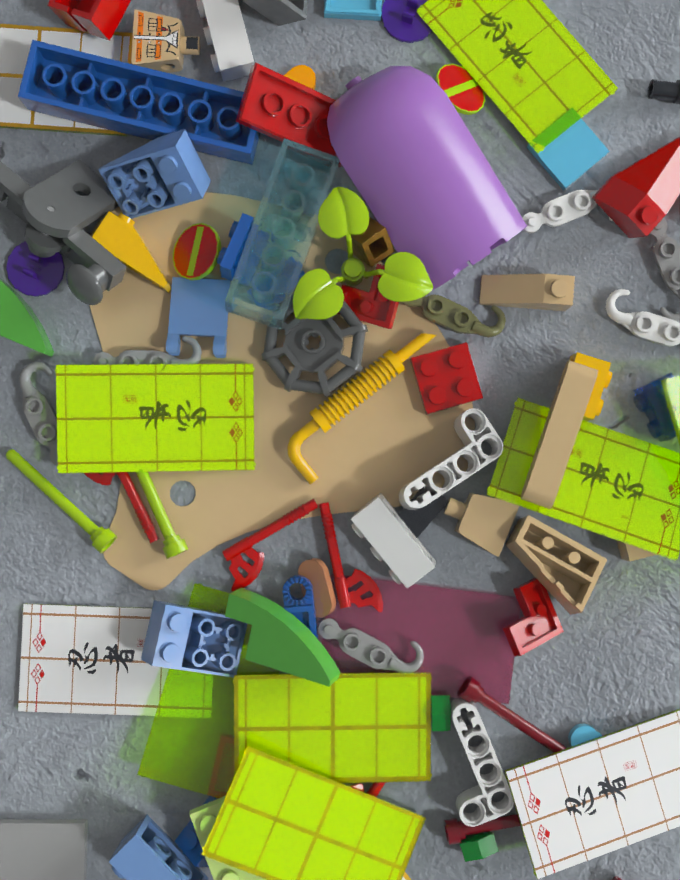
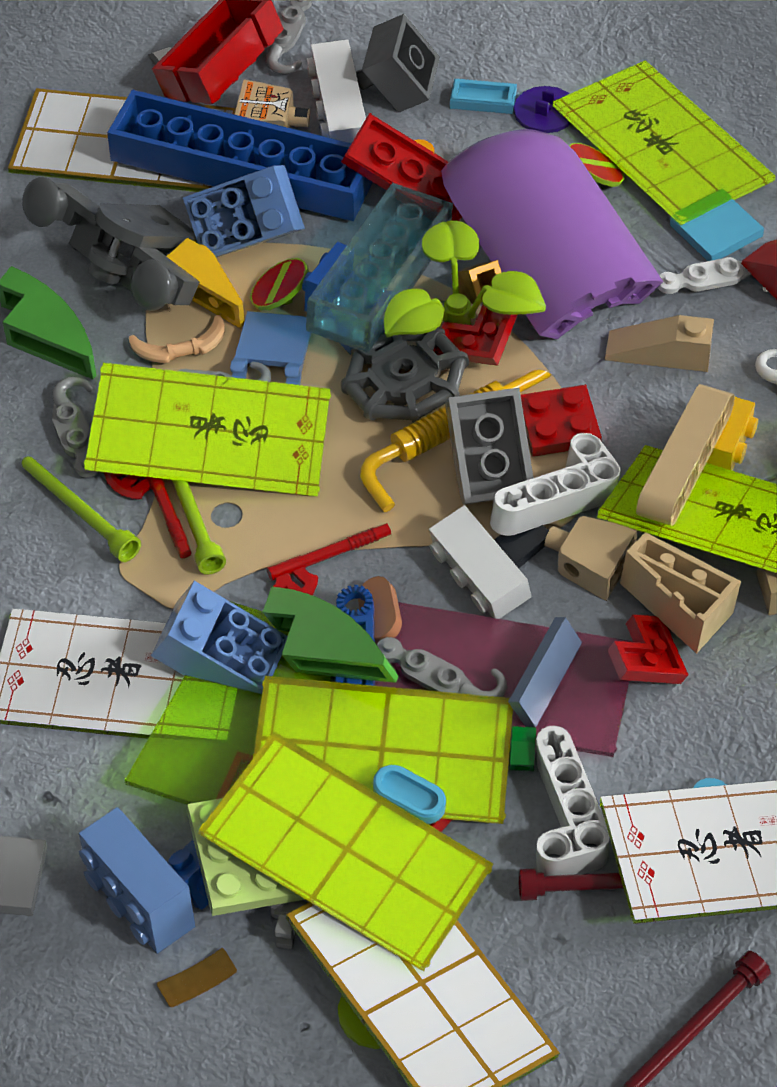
camera: 10 degrees right, 35 degrees down
(32, 273) = (92, 298): dark purple piece -> none
(139, 318) = (195, 346): none -> light nougat piece
(341, 583) = (411, 609): red piece -> none
(358, 772) = (410, 792): none -> medium azure tile
(394, 427) = (488, 443): none -> light grey brick
(453, 645) = (545, 672): none -> sand blue tile
(457, 317) = (570, 361): olive piece -> none
(471, 691) = (568, 720): dark red piece -> none
(478, 846) = (562, 901): green piece -> none

